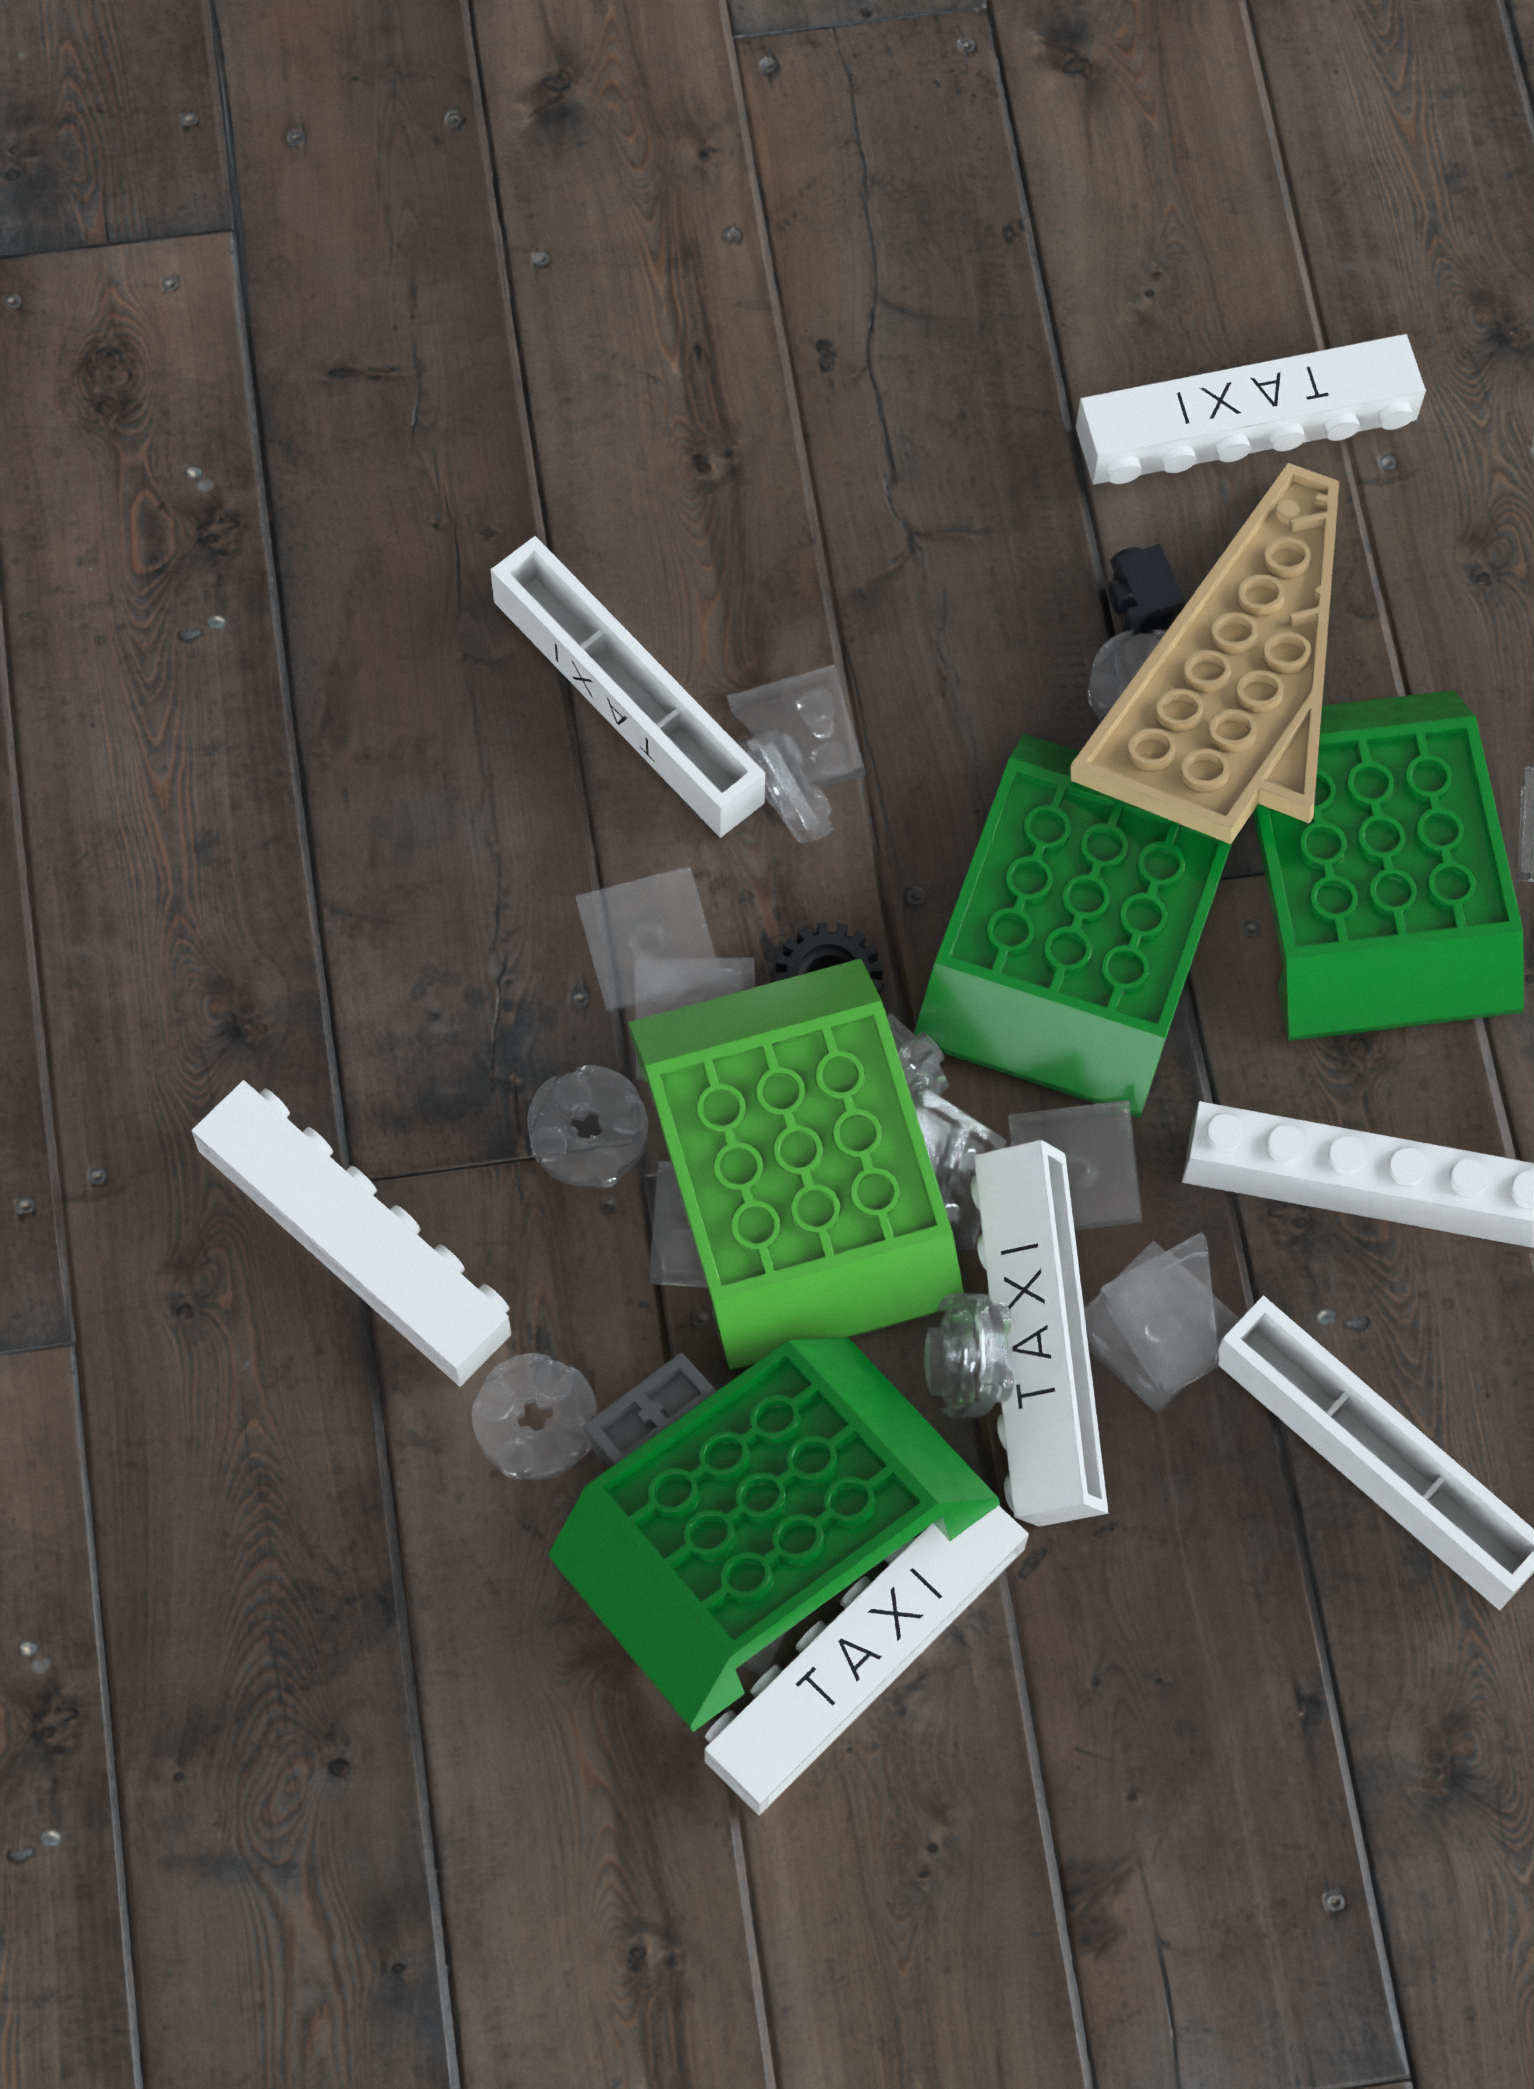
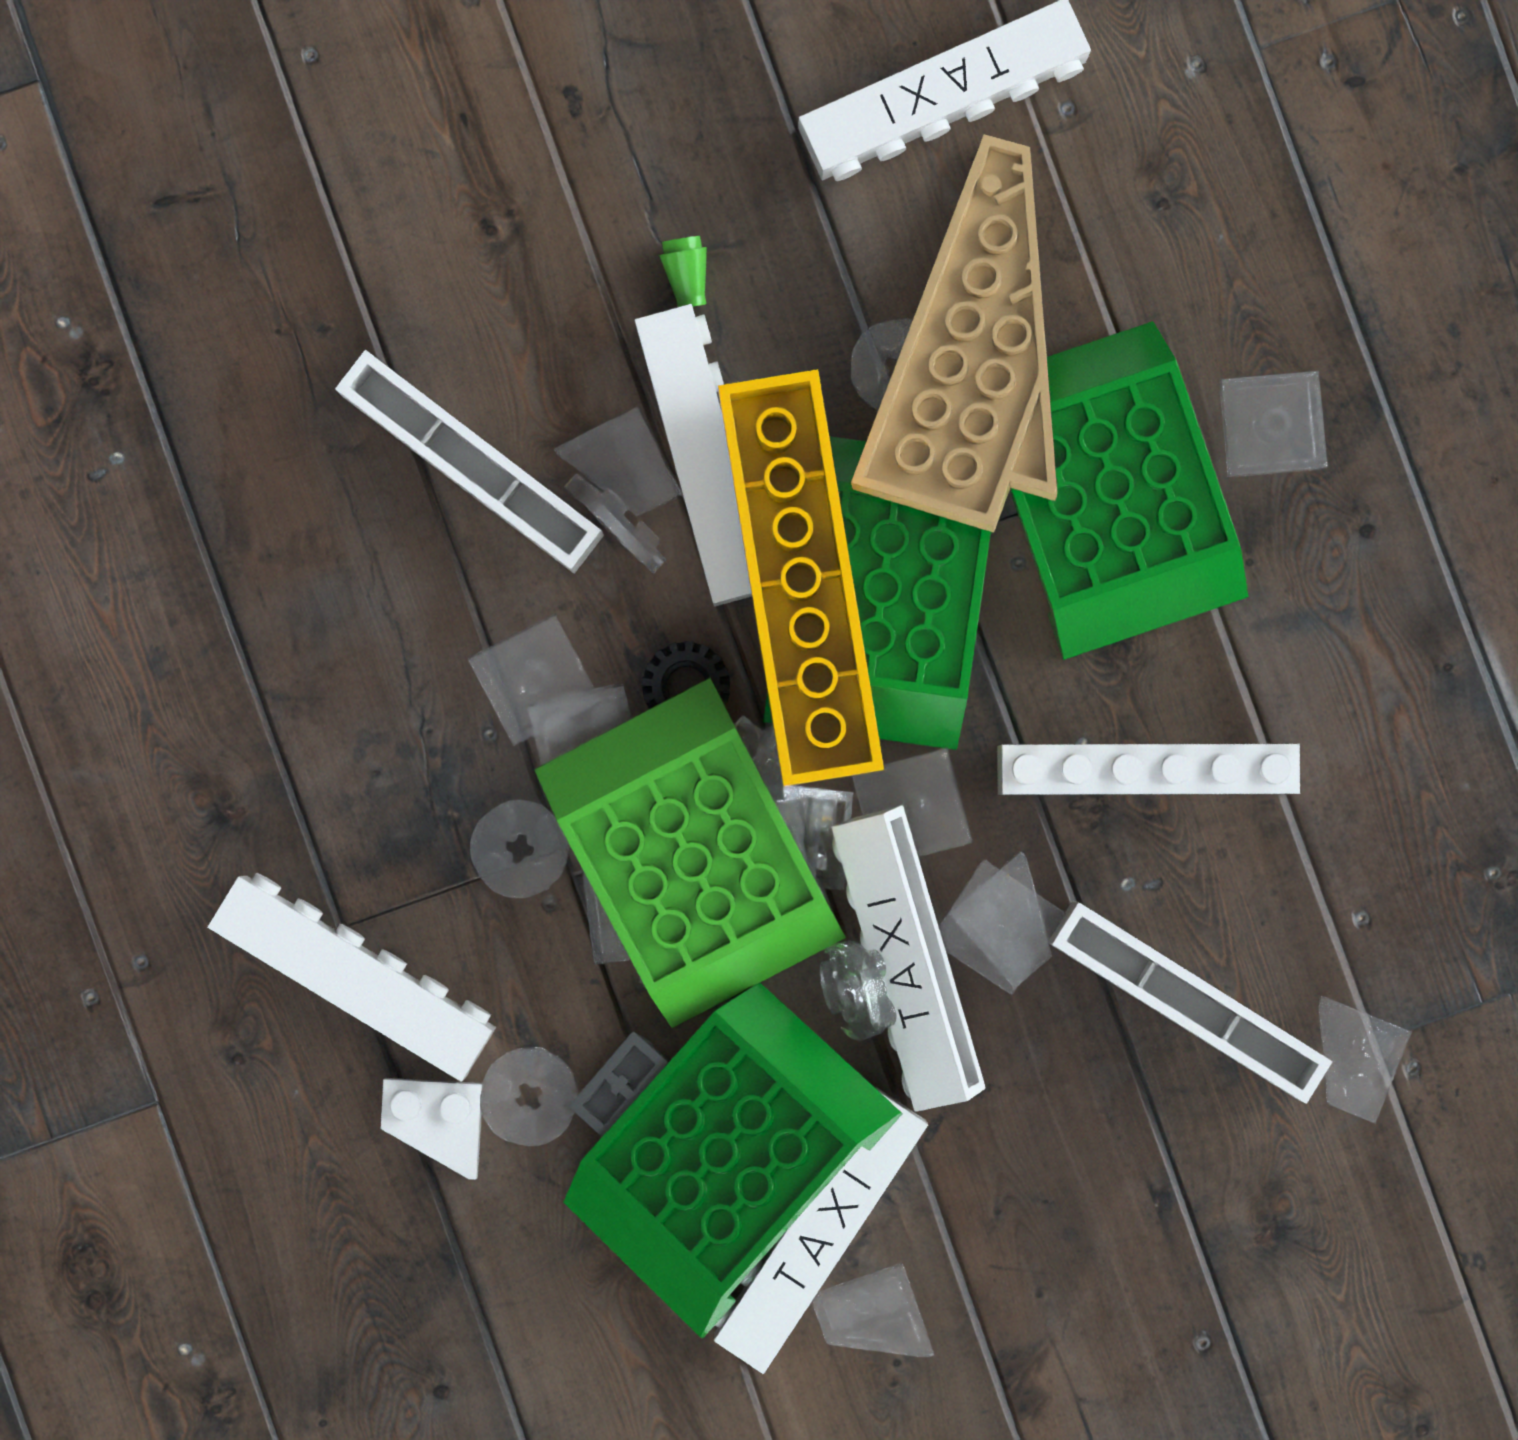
camera: 15 degrees left, 20 degrees up
(413, 1424) = (436, 1120): none -> white wing
(900, 736) = (697, 441): none -> white brick
(915, 1773) = (874, 1314): none -> clear wing
(919, 536) = (686, 269): none -> bright green cone
(992, 857) = (800, 578): none -> yellow brick
(1144, 590) = (882, 282): black brick -> none

